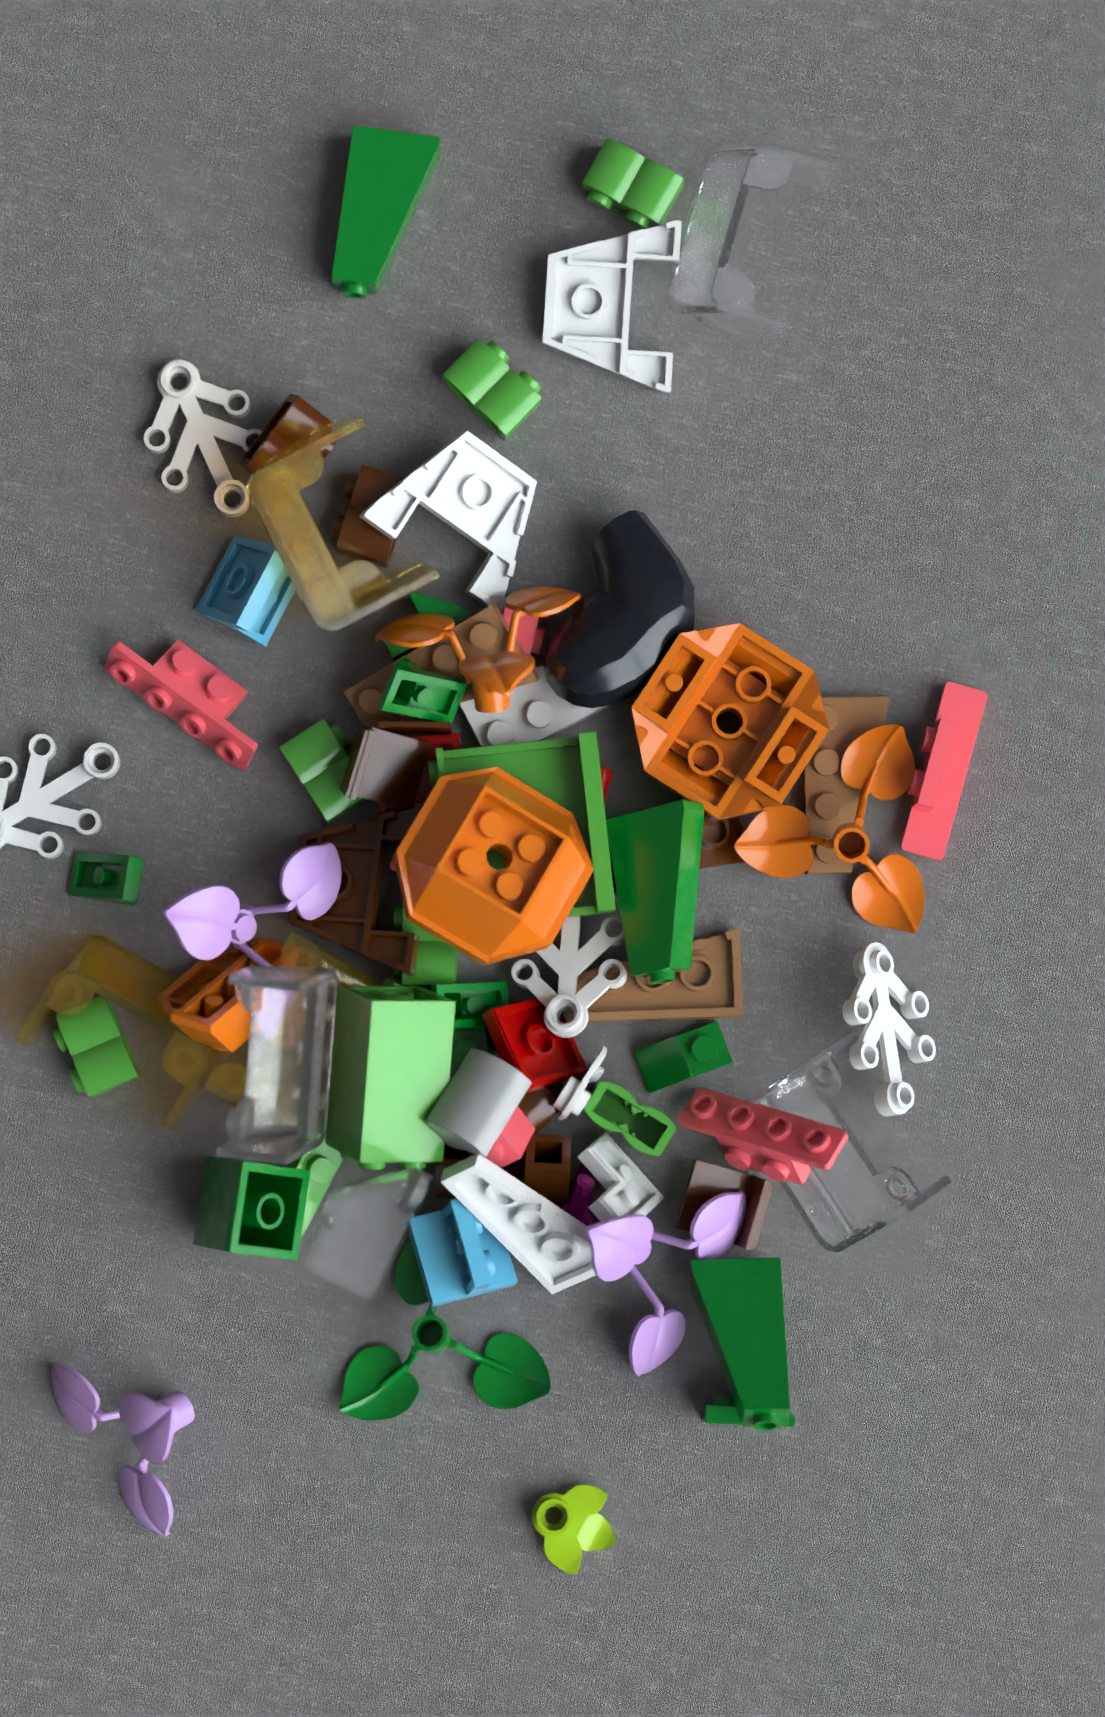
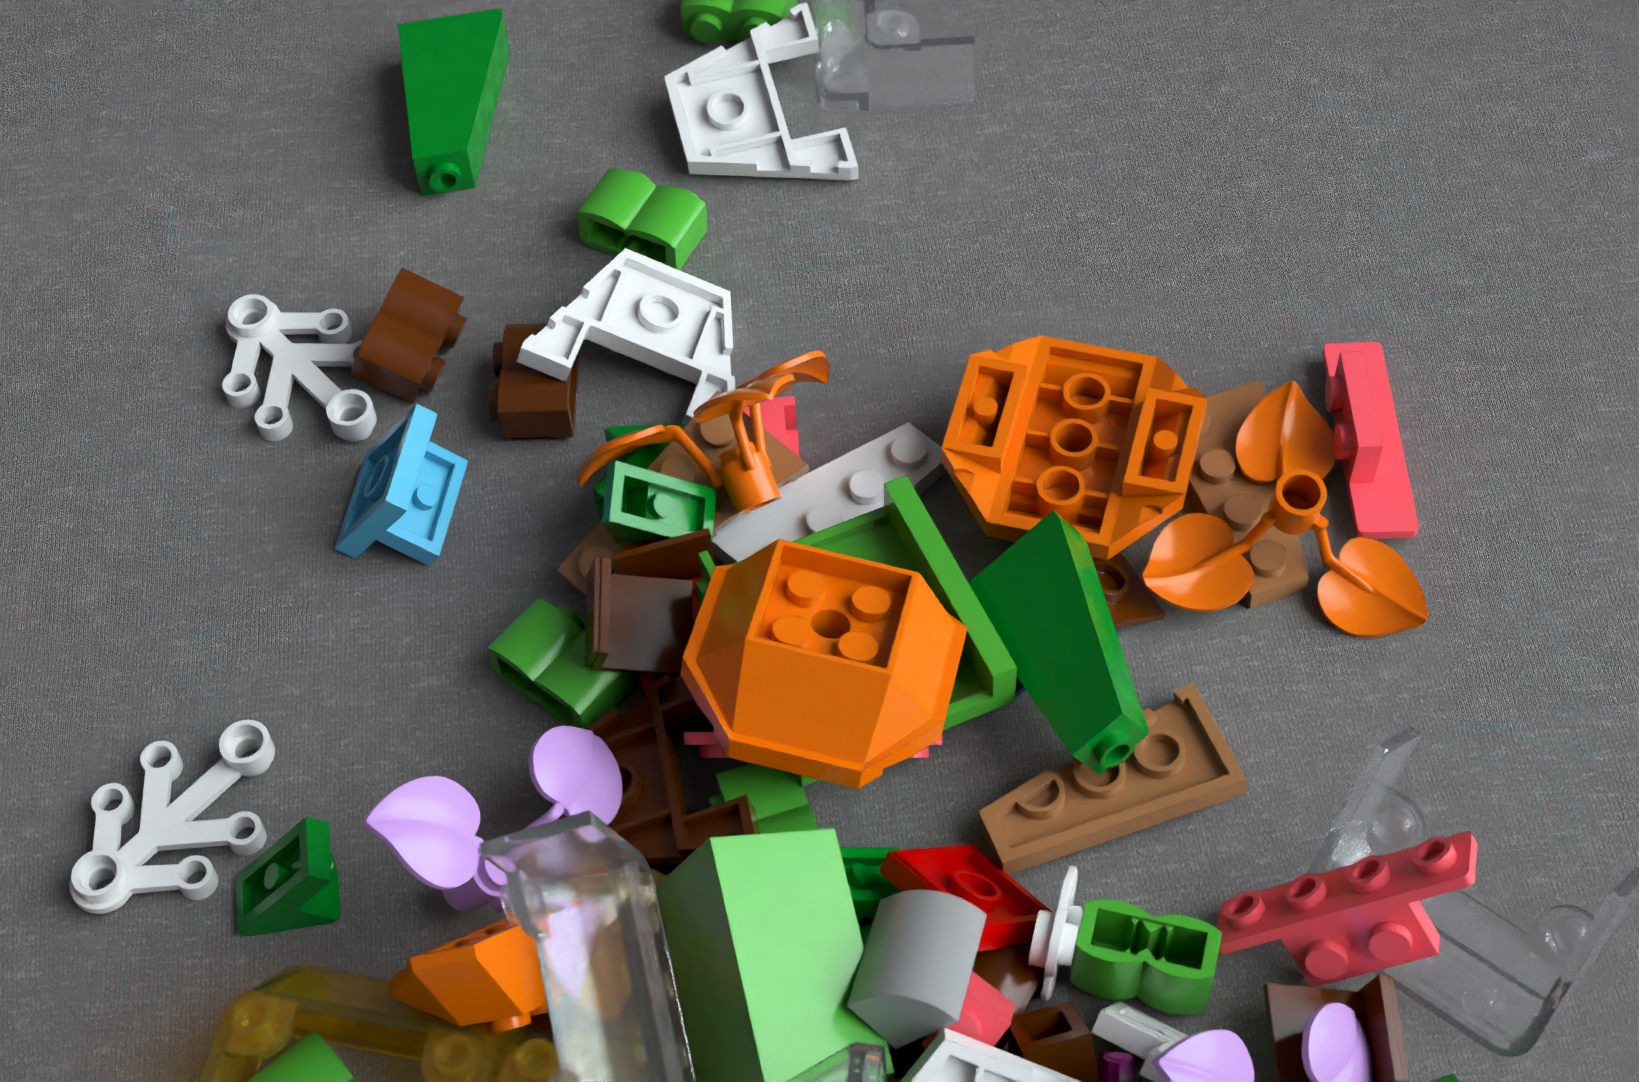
camera: 10 degrees left, 30 degrees down
(190, 694) = (347, 640): coral bracket -> none
(329, 593) = (413, 342): clear yellow windscreen -> none
(569, 964) = (978, 790): white plant -> none
(627, 624) = (895, 375): black piece -> none
(683, 1057) = (1185, 865): green slope -> none
(875, 976) = (1452, 731): white plant -> none

